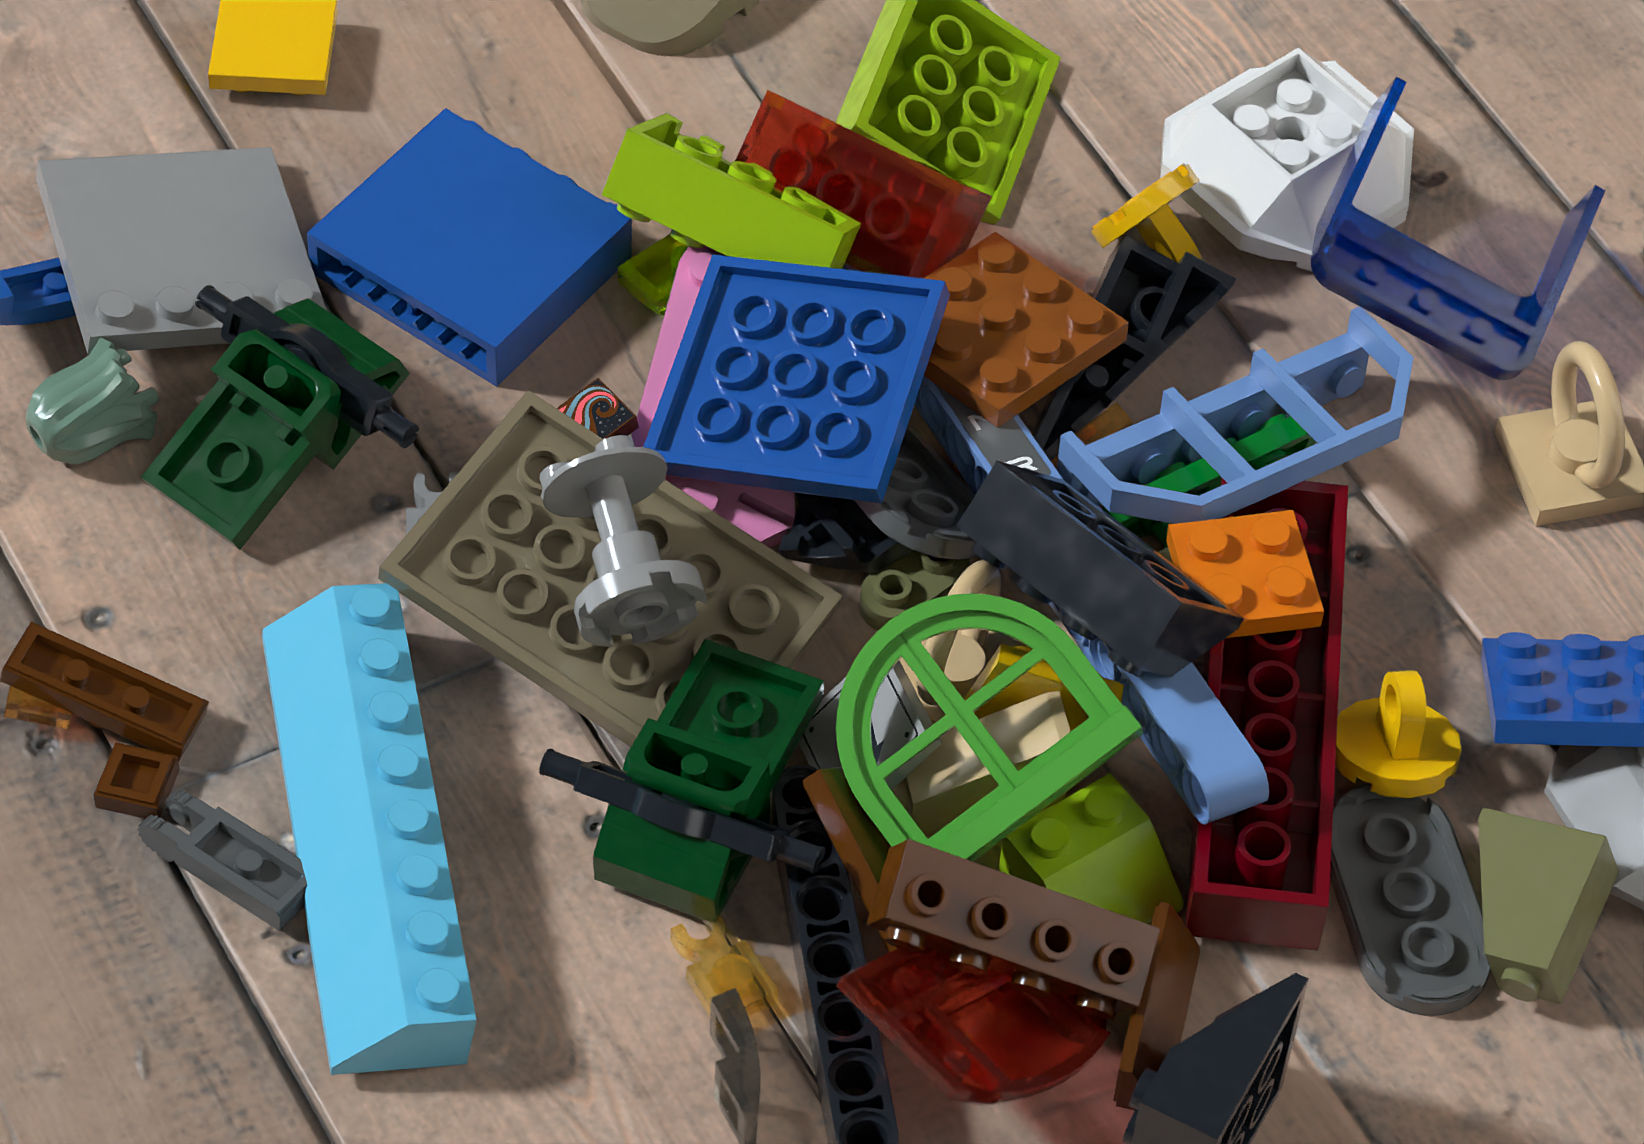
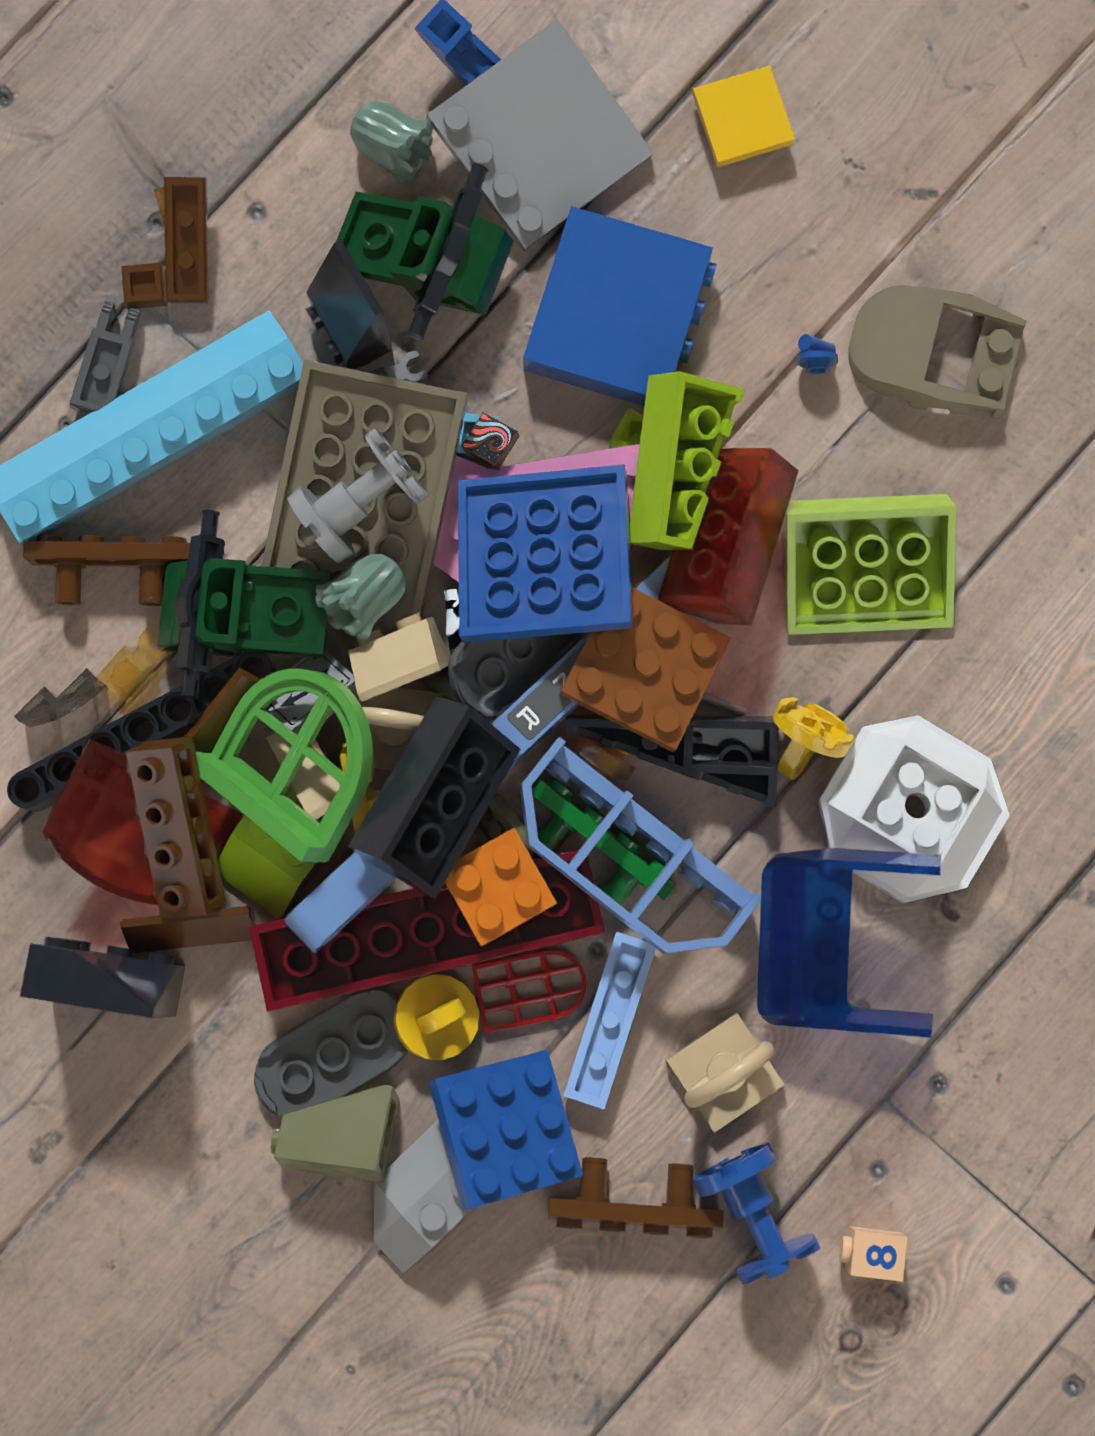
camera: 75 degrees right, 30 degrees up
(325, 497) = (347, 311): none -> black slope
(545, 912) = (91, 550): none -> reddish brown plate
(645, 68) = (816, 355): none -> blue plate
(762, 599) = (362, 594): none -> sand green piece
(864, 580) = (397, 658): none -> tan slope
(1406, 624) = (518, 1001): none -> red window
(1465, 555) = (609, 1020): none -> light blue plate

